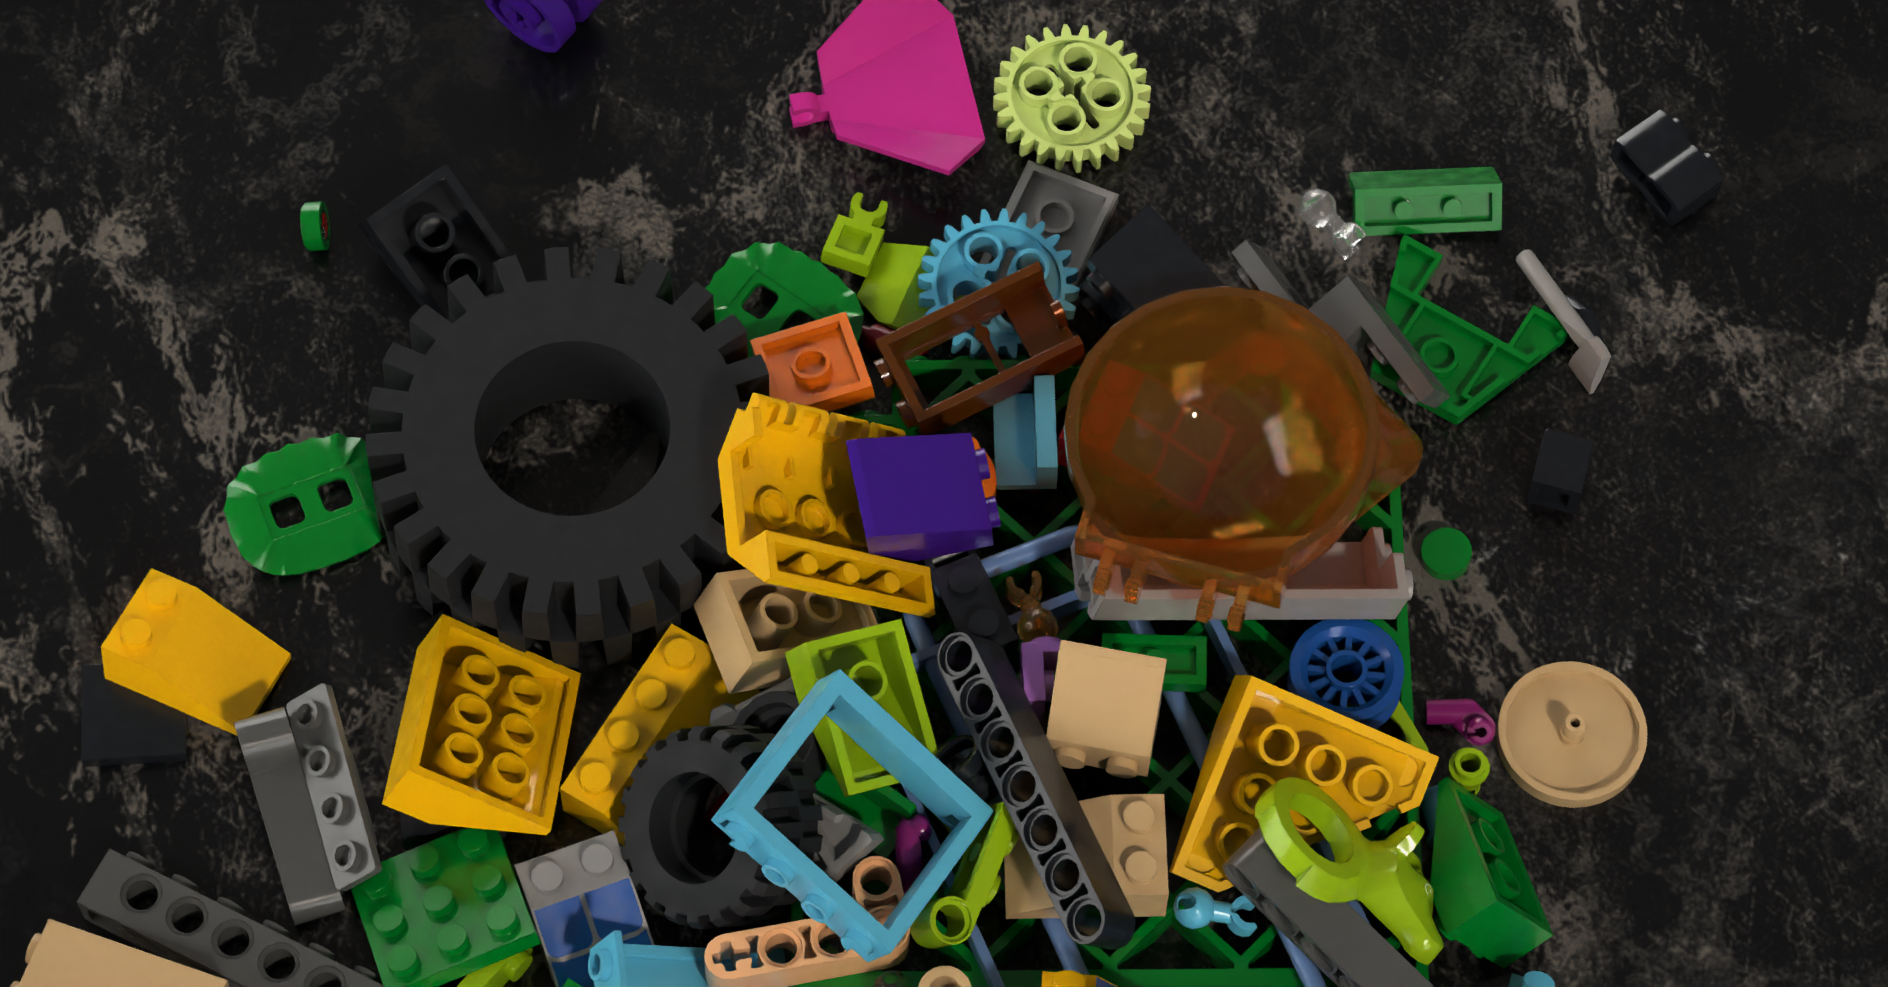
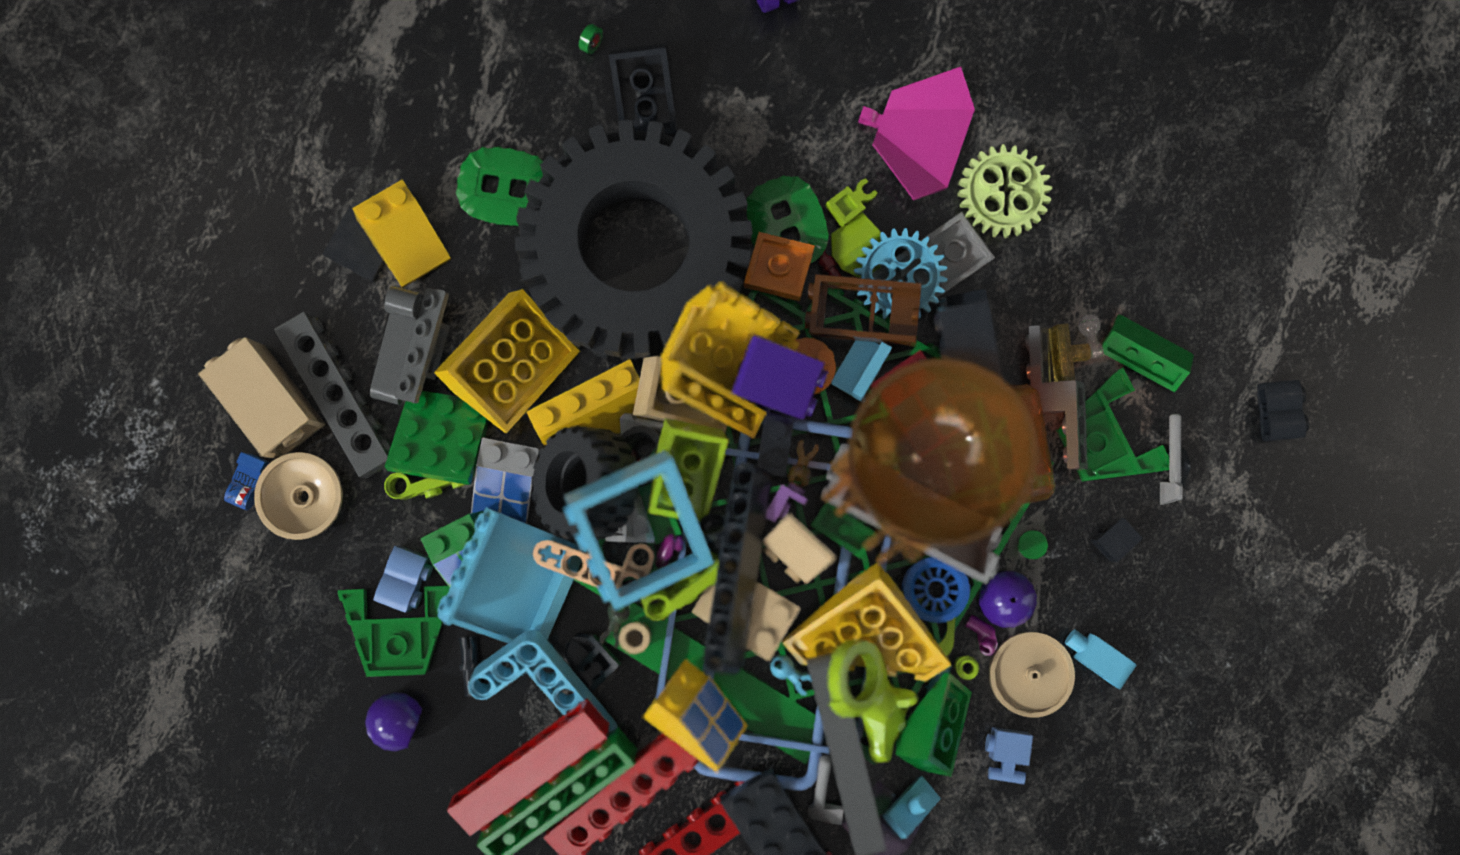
camera: 40 degrees right, 20 degrees up
(1306, 264) = (1064, 353): none -> clear yellow tile
(1461, 640) = (996, 596): none -> dark purple helmet
(1615, 852) = (1010, 748): none -> medium blue brick
(1655, 647) = (1101, 658): none -> medium azure piece

